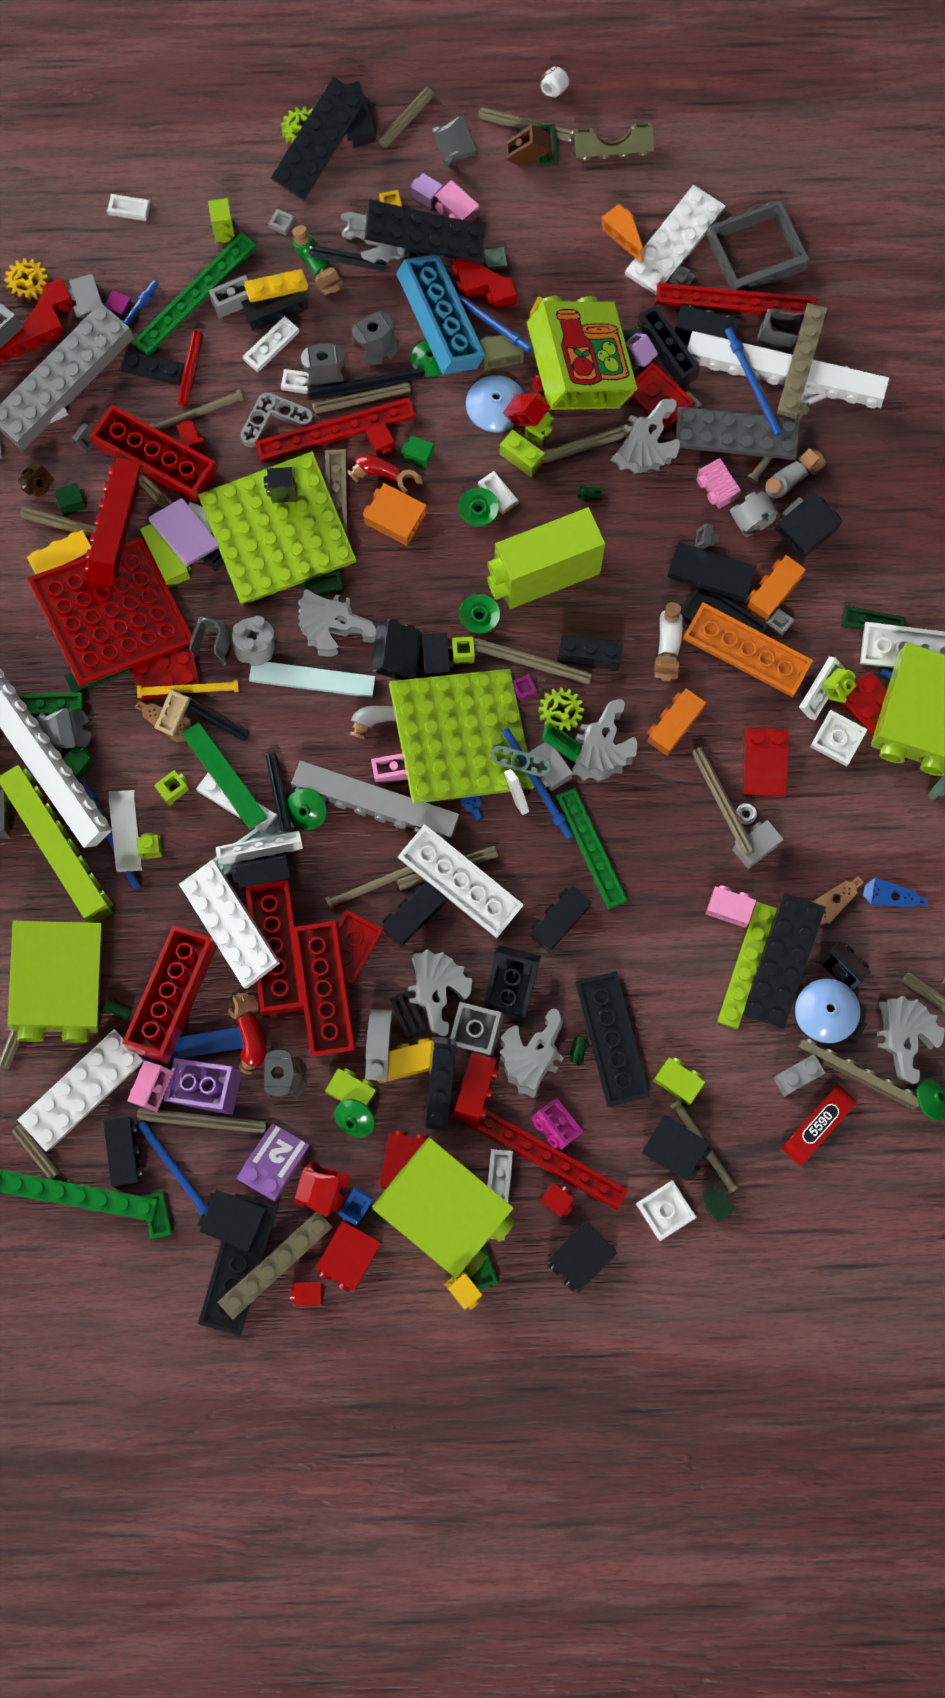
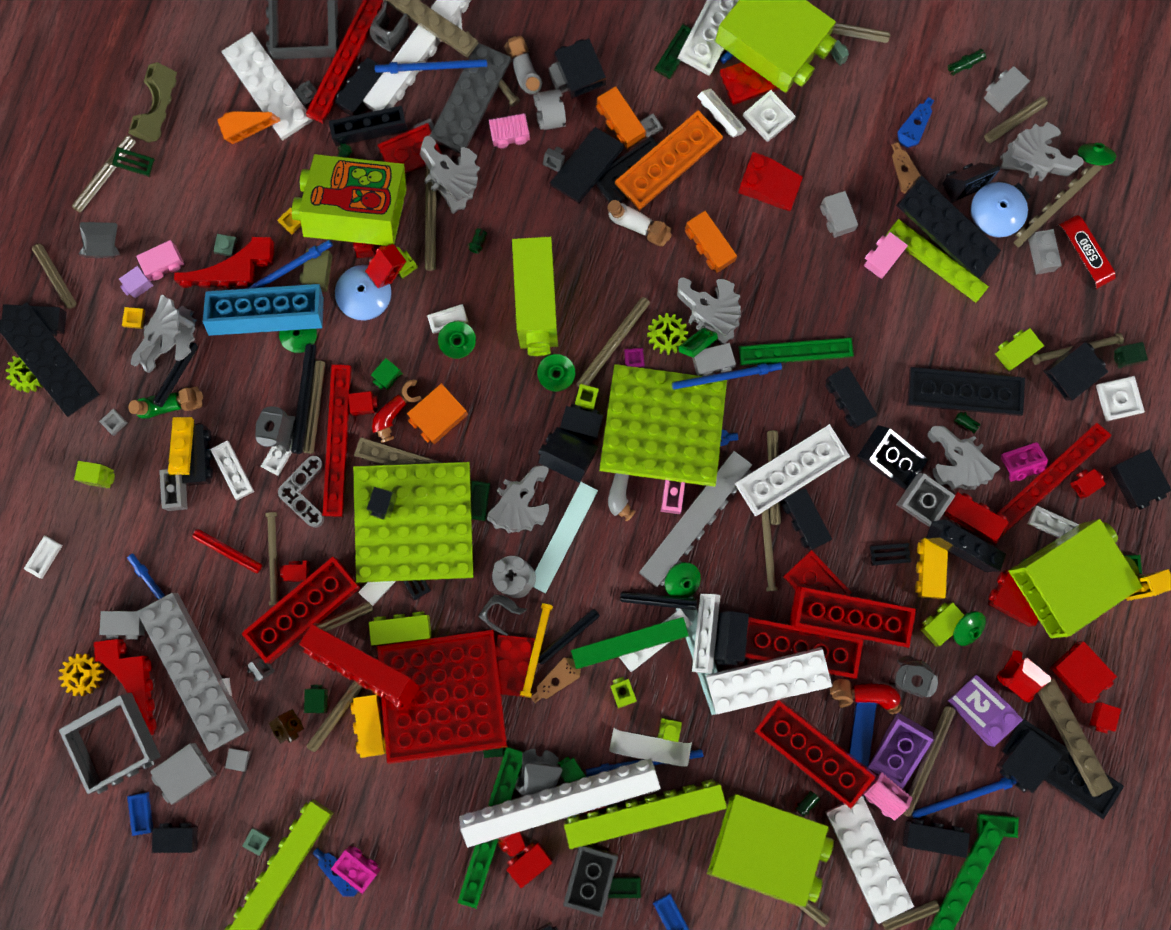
camera: 70 degrees left, 5 degrees up
(118, 303) = (137, 597): dark pink tile -> none
(152, 367) = (213, 585): black plate -> none
(172, 713) = (555, 670): tan plate -> none
(184, 532) = (388, 606): lavender tile -> none
(195, 294) = (156, 523): green plate -> none
(356, 1206) = (1043, 652): blue bracket -> none
(376, 336) = (270, 376): dark grey piece -> none
(378, 1044) = (913, 584): light grey arch -> none
(424, 232) = (182, 295): black plate -> none
(433, 975) = (869, 520): light grey animal -> none
(516, 791) = (732, 395): white tile -> none
(521, 453) = (421, 285): lime brick -> none
(523, 769) = (703, 396): sand green beam -> none
(527, 146) = (129, 178): reddish brown brick -> none
(554, 82) = (73, 133): white head -> none
(590, 652) = (624, 291): black brick -> none
(640, 350) = (362, 149): lavender brick -> none
(723, 801) = (794, 228): dark tan axle -> none
(748, 808) = (808, 209): white plate -> none
(839, 684) = (725, 97): lime brick -> none

